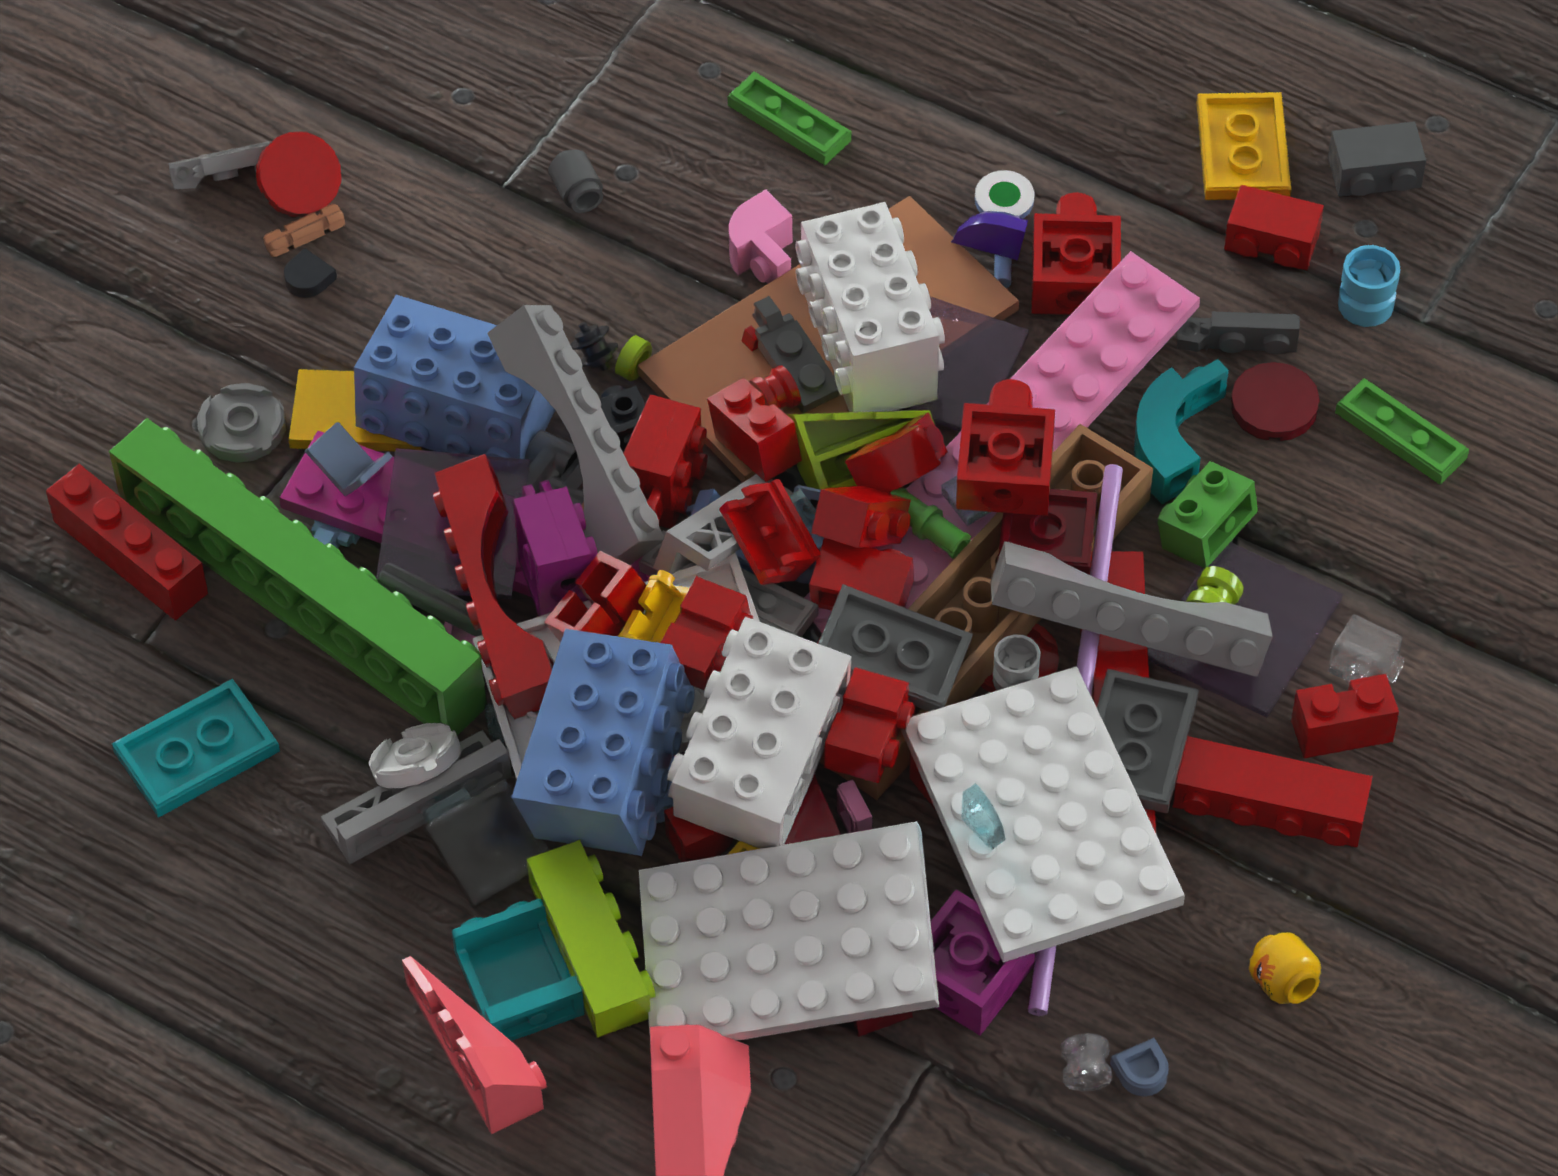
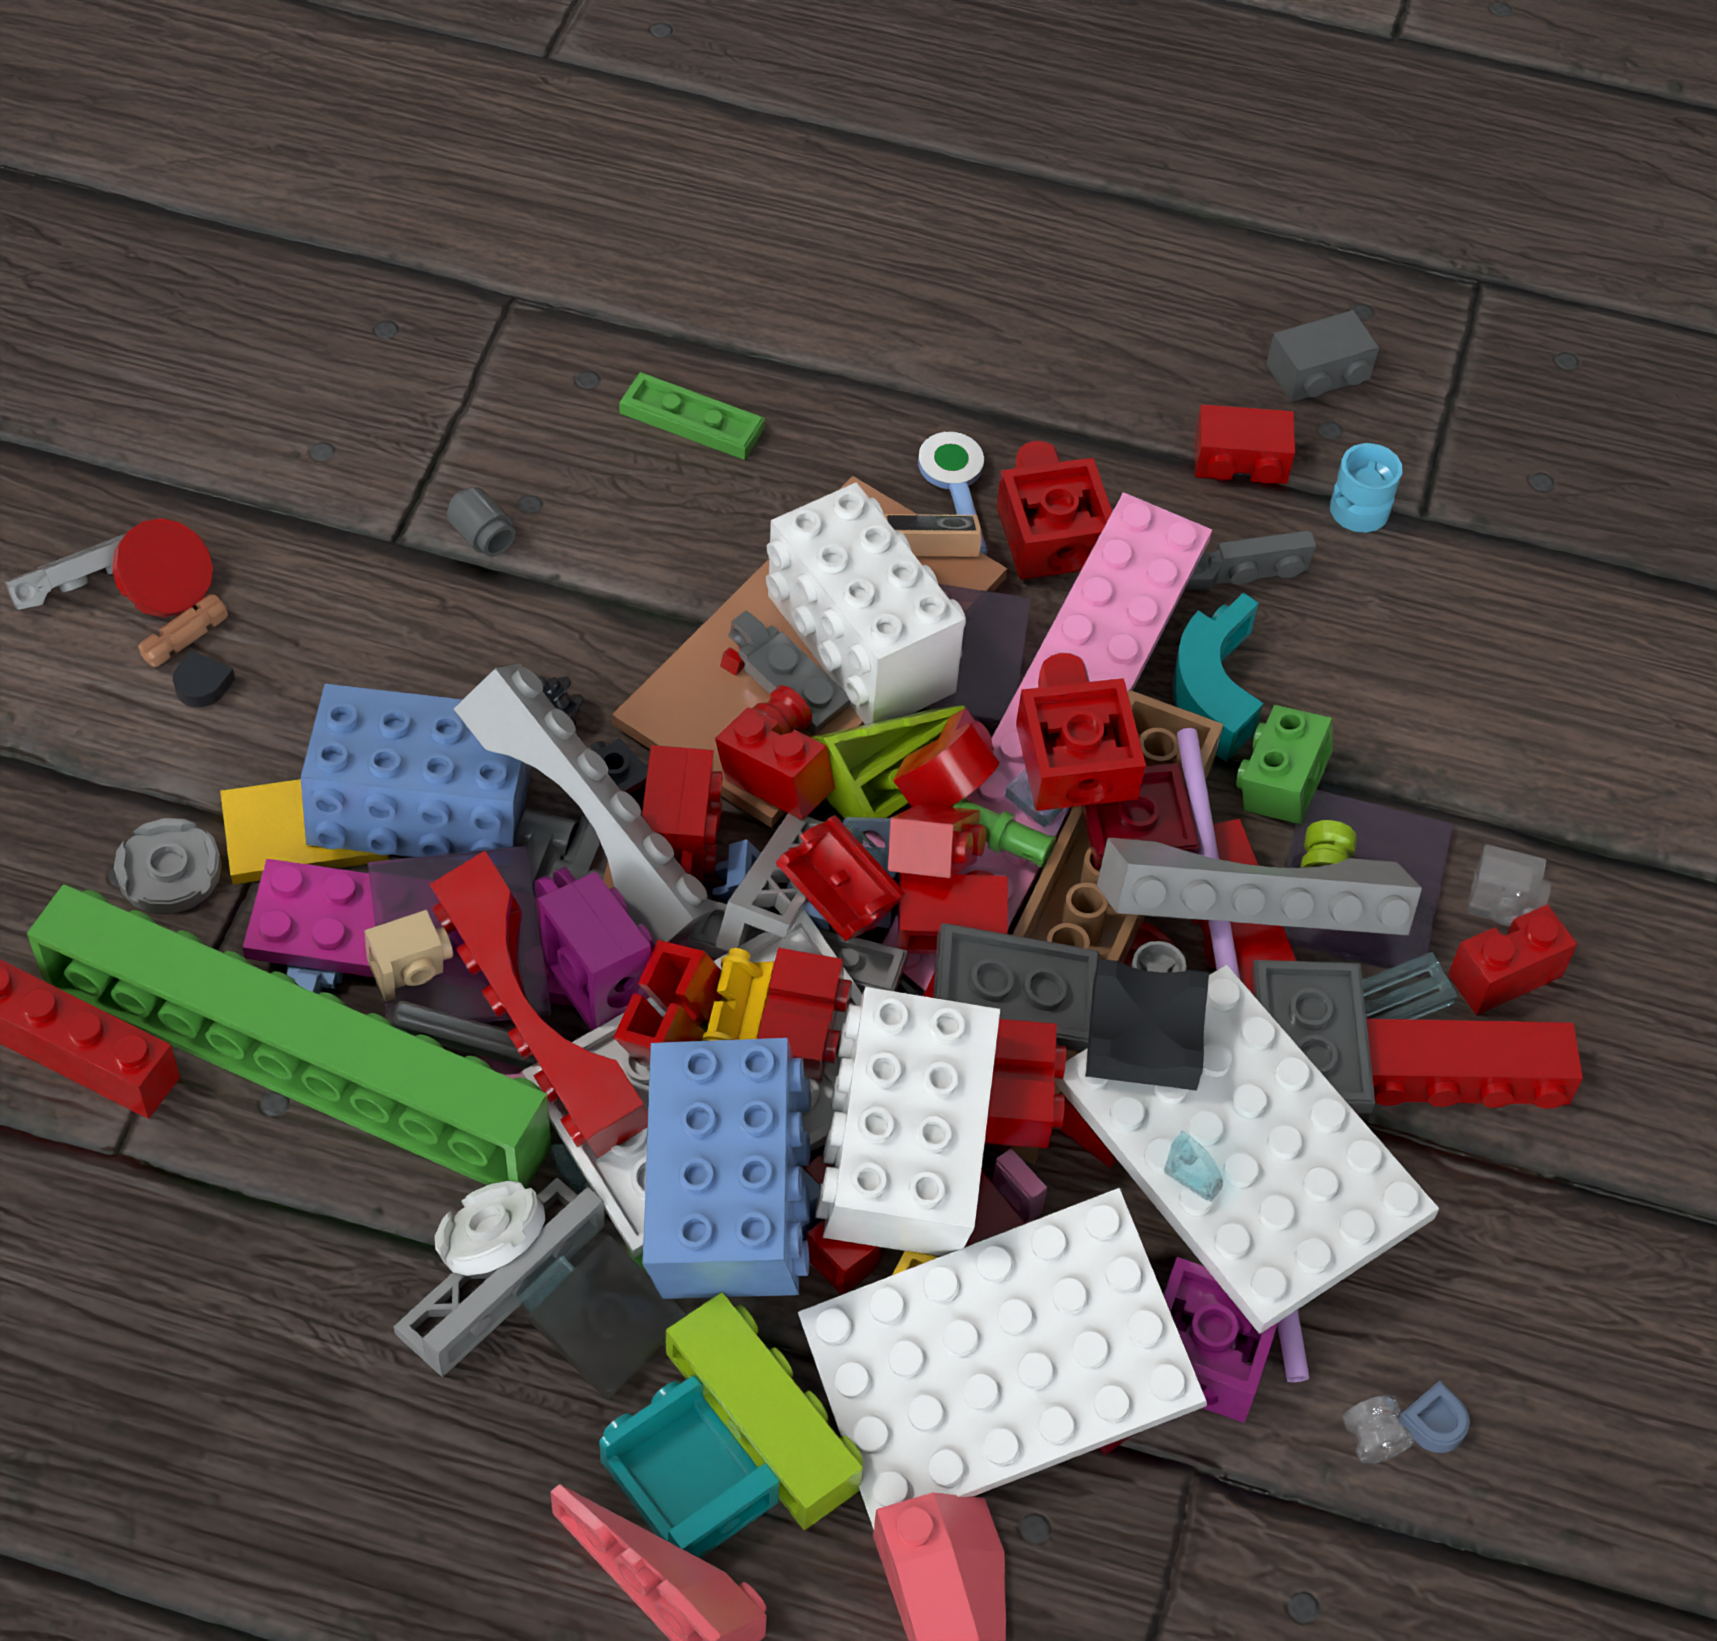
camera: 20 degrees left, 0 degrees up
(195, 747) = (215, 1273): teal tile -> none
(344, 459) = (314, 889): sand blue bracket -> none
(404, 524) = (406, 952): none -> tan brick
(632, 354) = (604, 704): lime tile -> none
(757, 237) = (703, 548): bright pink brick -> none
(959, 259) = (939, 533): none -> light nougat slope
(981, 698) = (1147, 1026): none -> black brick
(993, 233) = (961, 497): dark purple brick -> none
(1237, 710) = (1418, 1008): none -> clear light blue tile
(1242, 143) = (1176, 364): yellow tile -> none
(1275, 401) = (1307, 628): dark red tile -> none
(1285, 968) = (1554, 1265): yellow head -> none
(1402, 431) = (1448, 635): bright green tile -> none

